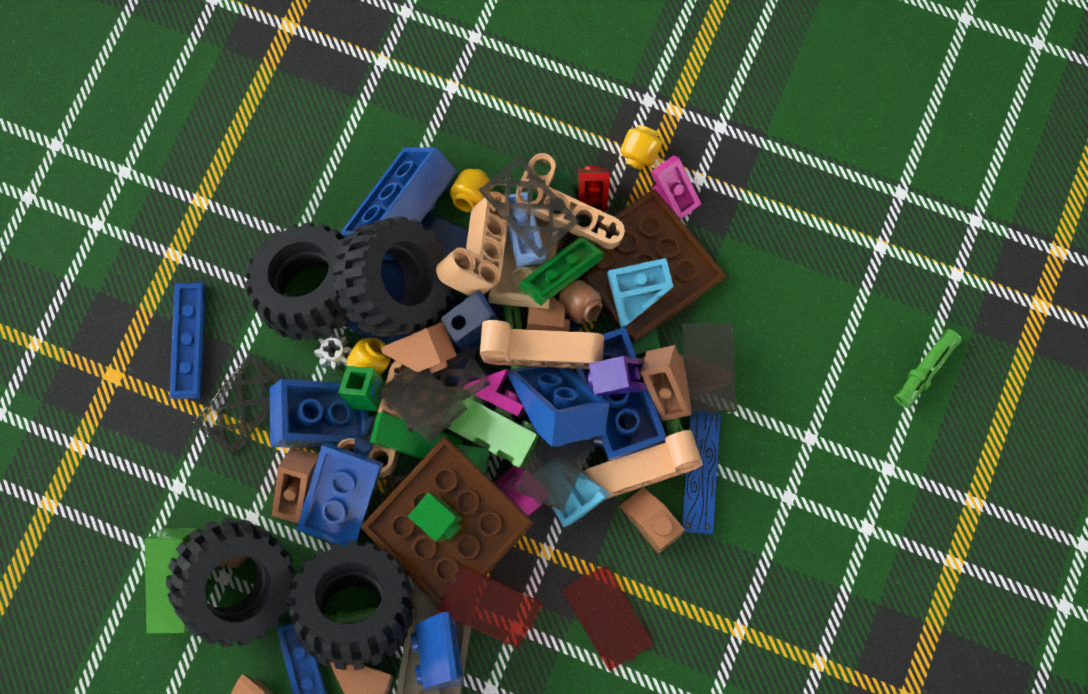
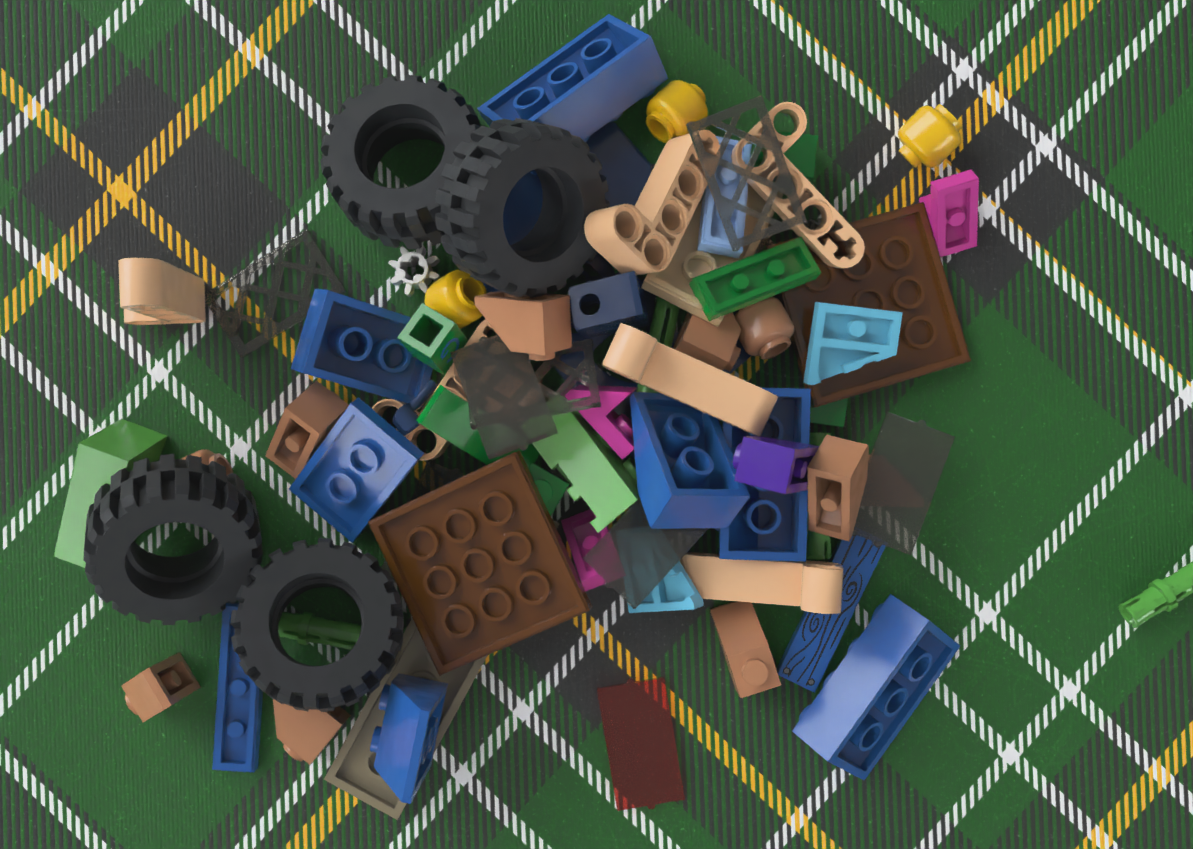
camera: 20 degrees right, 15 degrees up
(170, 424) = (159, 293): none -> light nougat beam
(187, 341) = (231, 179): blue tile -> none
(436, 518) = (466, 559): green brick -> none
(490, 606) = (496, 684): clear red piece -> none
(594, 187) = (845, 171): red slope -> none
(754, 513) = (875, 688): none -> blue slope

